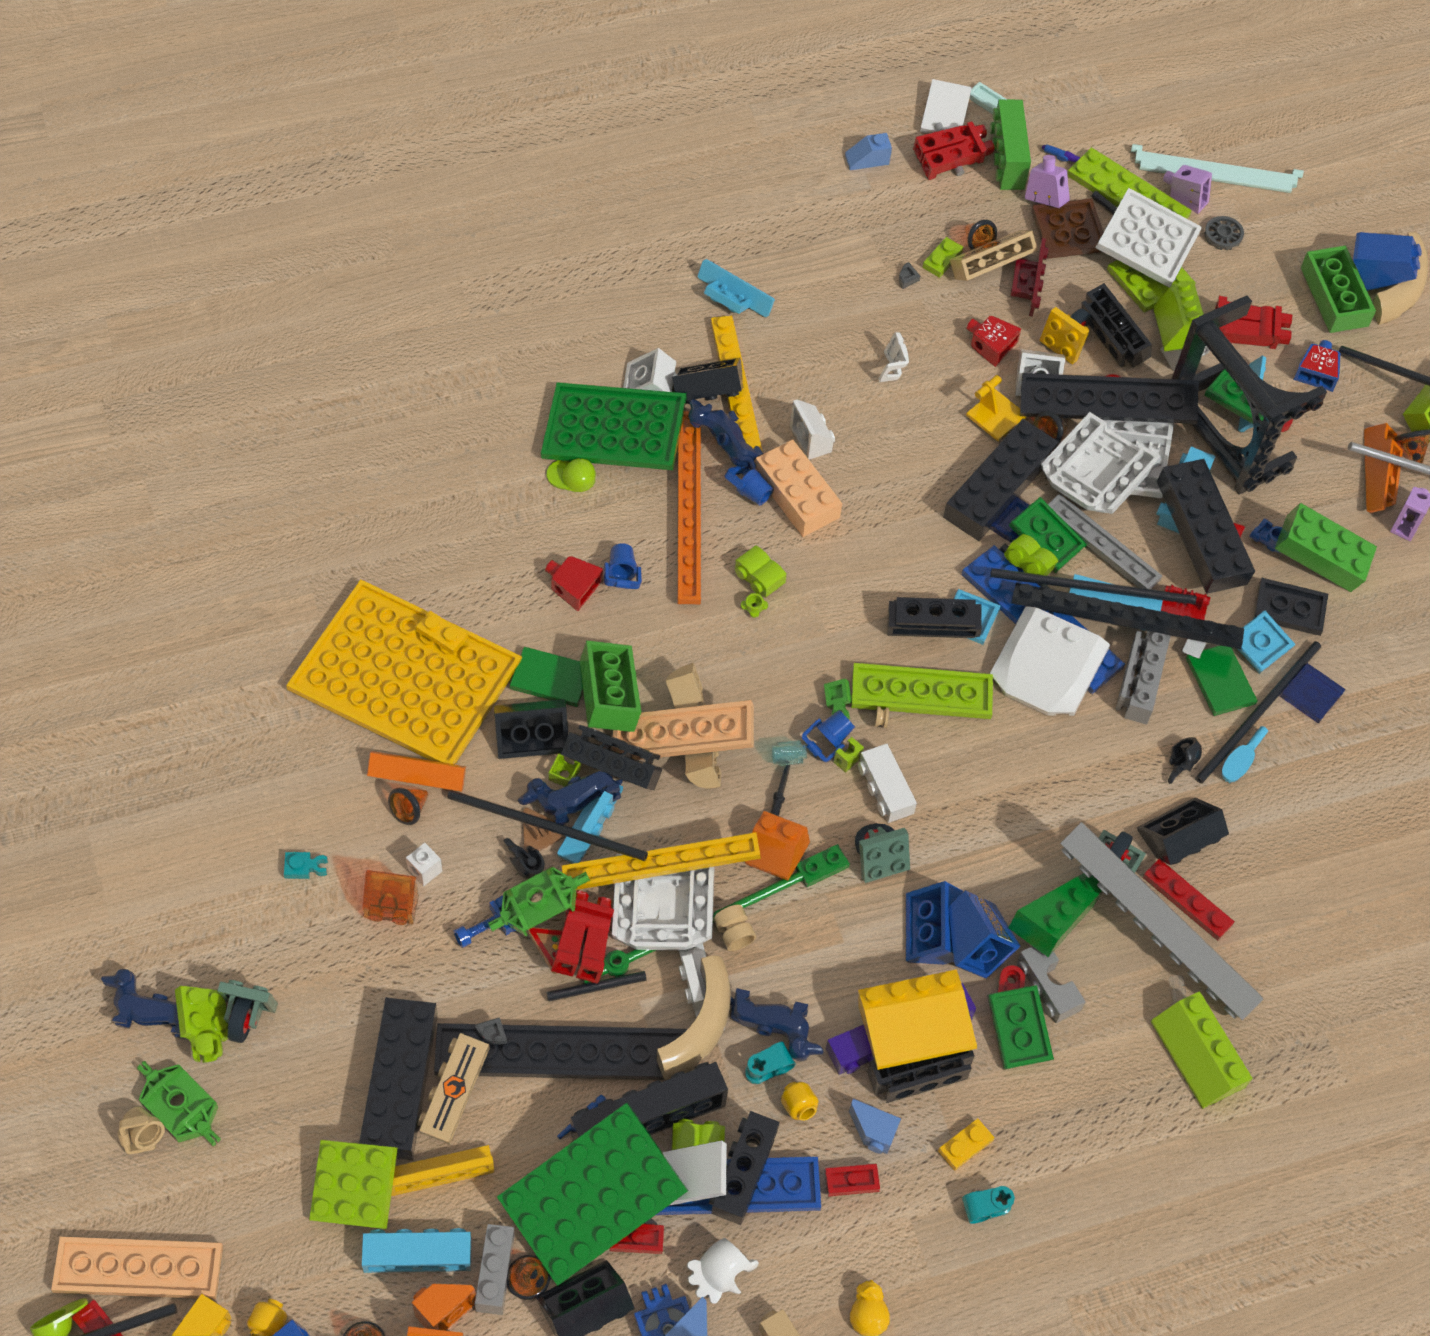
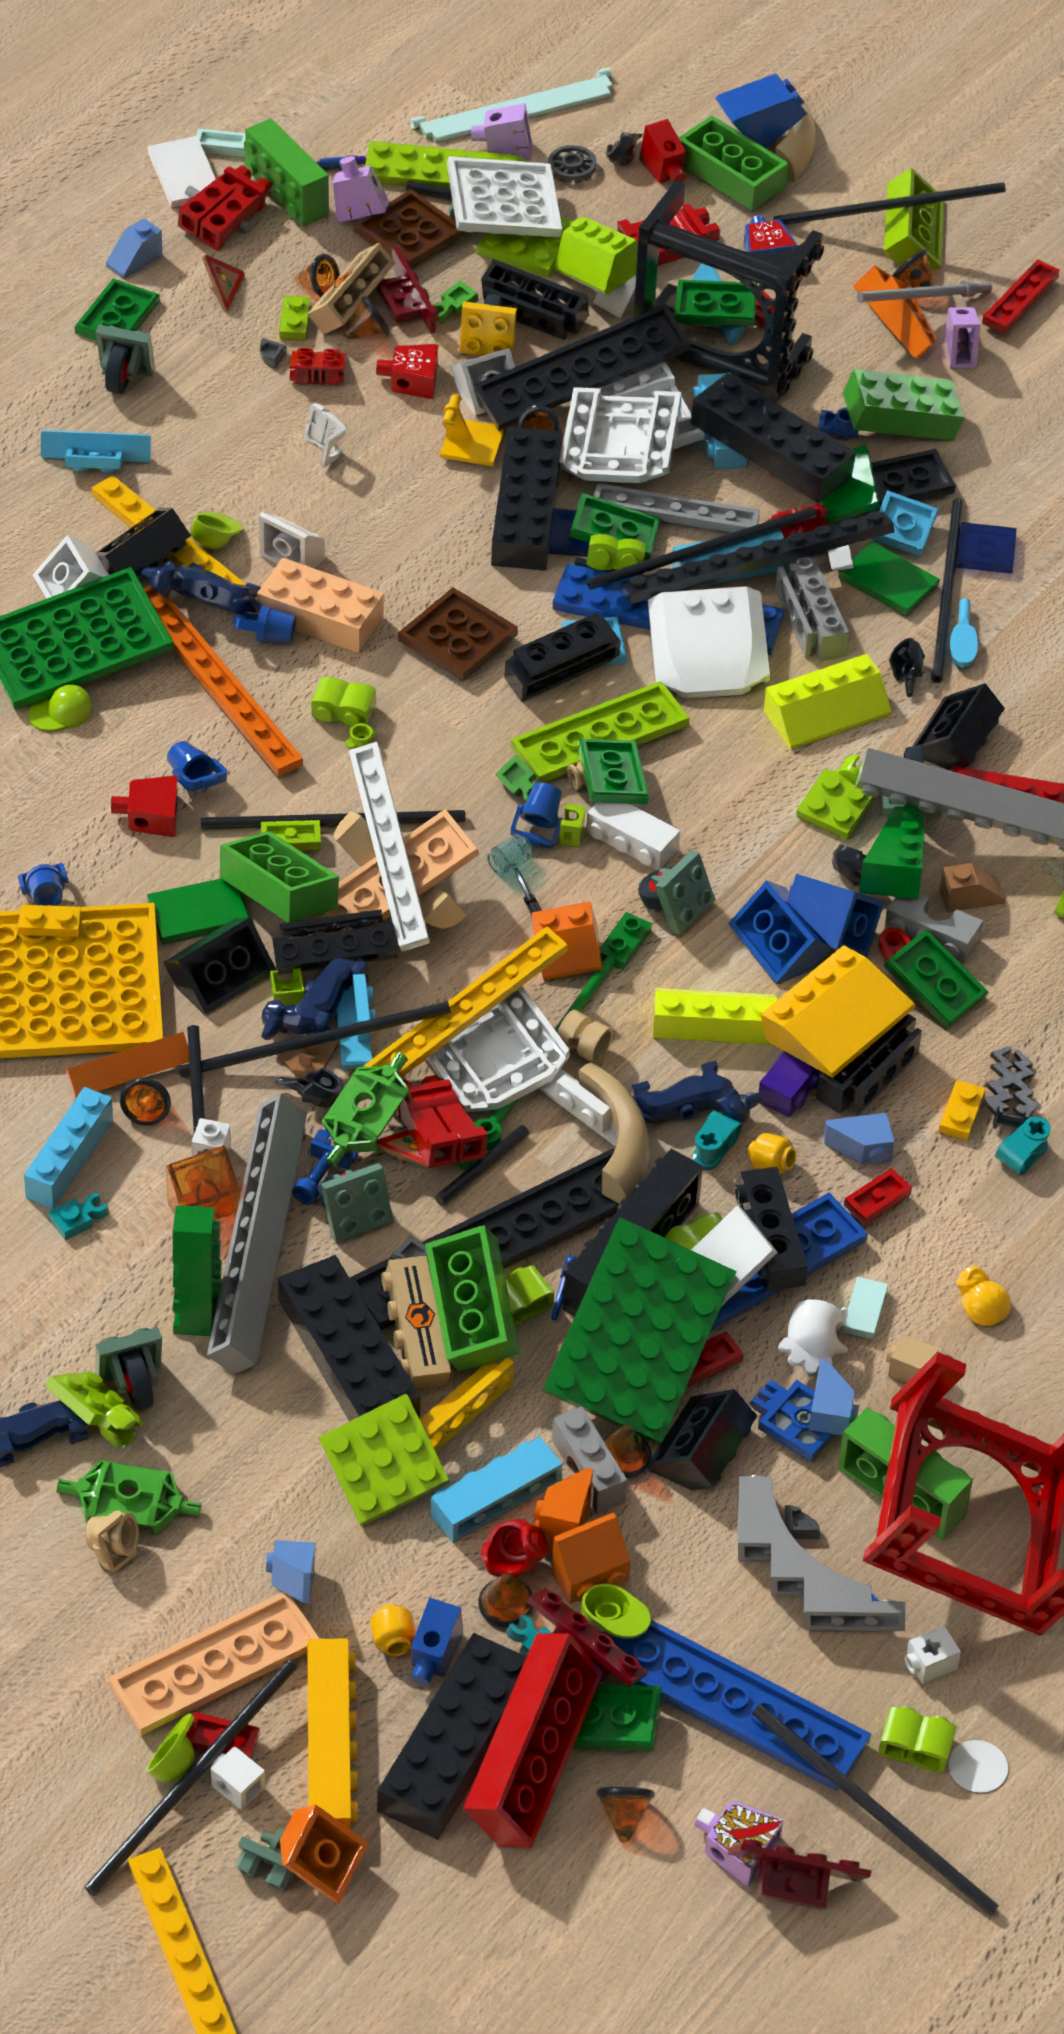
camera: 30 degrees left, 10 degrees down
(236, 1230) = (292, 1568): none -> medium blue slope
(328, 962) = (195, 1269): none -> green wedge
(331, 812) = (68, 1147): none -> medium azure brick
(389, 1310) = (513, 1548): none -> red hair
(401, 954) = (257, 1235): none -> light grey brick
(451, 807) = (196, 1078): none -> black bar
(460, 602) = (44, 883): none -> blue piece
(483, 965) = (355, 1201): none -> sand green plate
(498, 1095) = (472, 1298): none -> bright green brick
(540, 1108) = (528, 1294): none -> lime brick
(652, 655) = (299, 834): none -> lime plate
(694, 707) = (389, 847): none -> white plate
(698, 661) = (325, 819): none -> black piece
(770, 390) = (214, 529): none -> lime cap
(779, 1264) = (865, 1308): none -> light aqua tile
(797, 231) = (123, 356): none -> sand green plate
(825, 194) = (118, 306): none -> green tile
(839, 958) = (710, 1015): none -> neon yellow slope
(878, 559) = (458, 633): none -> reddish brown plate
(903, 730) = (613, 771): none -> green tile
(912, 205) = (224, 279): none -> piece
(931, 298) = (330, 360): none -> red hinge
(989, 285) = (366, 321): none -> clear orange hat
(1018, 1141) = (996, 1103): none -> piece
(1025, 893) = (848, 863): none -> black piece
(1045, 835) = (835, 801): none -> lime plate
(1063, 299) = (453, 300): none -> bright green plate
(1100, 966) = (969, 887): none -> medium nougat slope
(1102, 756) = (827, 701): none -> neon yellow slope
(1243, 600) = (856, 494): none -> green tile
(1268, 240) = (623, 150): none -> black piece
(1292, 257) = (663, 152): none -> red torso

